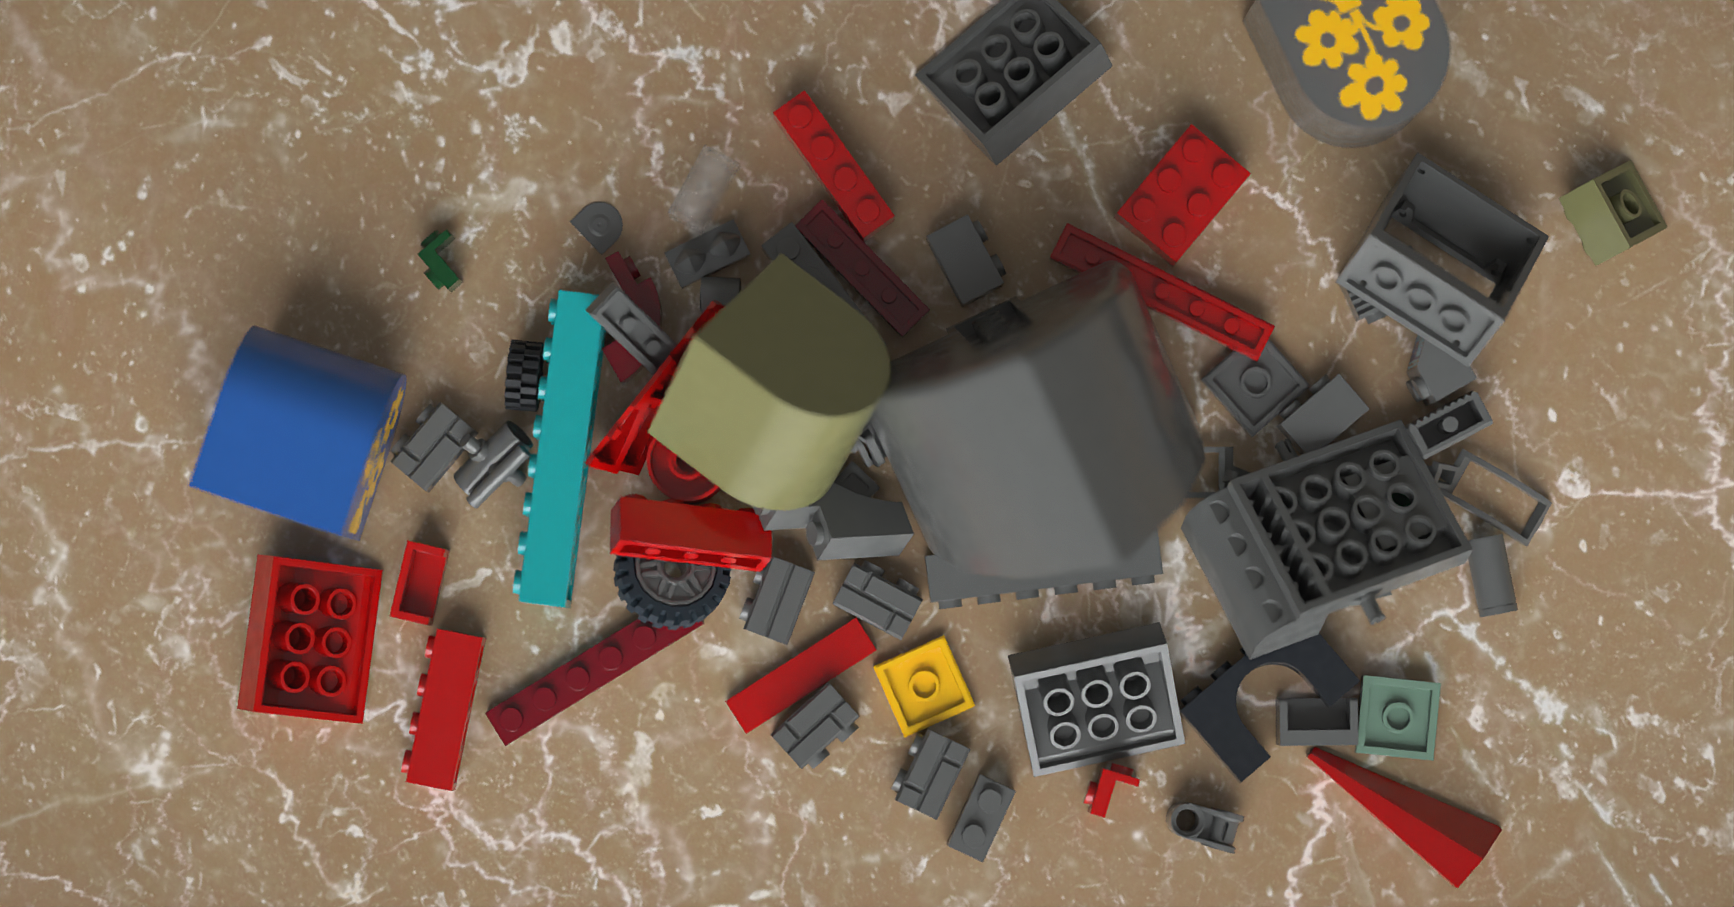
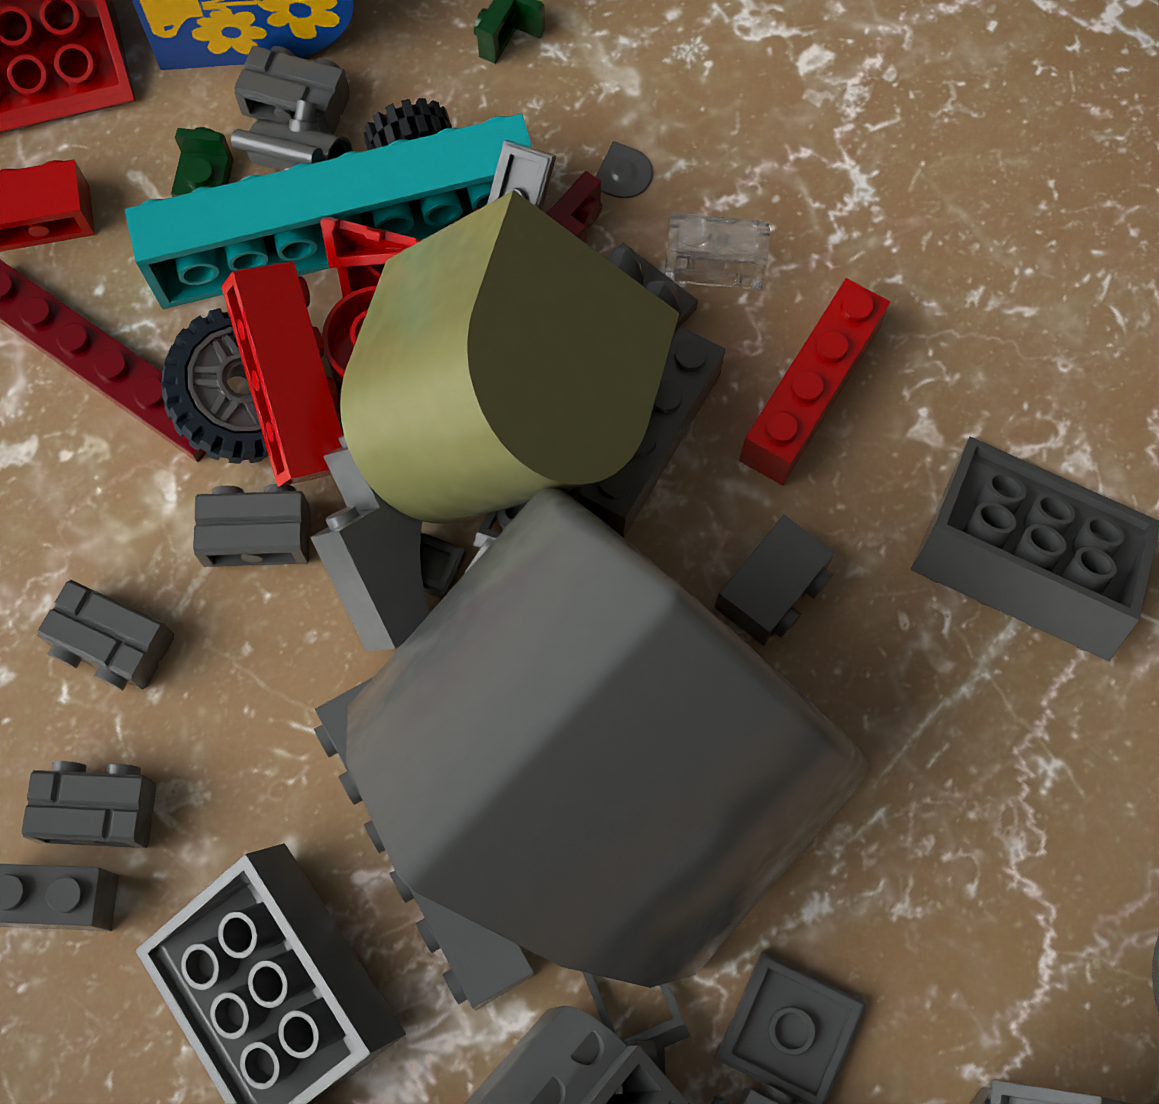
camera: 70 degrees right, 15 degrees down
(419, 583) = (125, 131): red panel -> none
(470, 539) = (203, 160): none -> dark green bracket
(801, 675) = (170, 597): red tile -> none
(862, 268) = (706, 467): dark red plate -> none
(878, 600) = (297, 648): dark grey brick -> none
(924, 686) = (208, 755): yellow tile -> none
(1100, 792) = (137, 1050): red bracket -> none
(1169, 294) = (854, 872): red tile -> none
(1182, 195) = (993, 820): red brick -> none

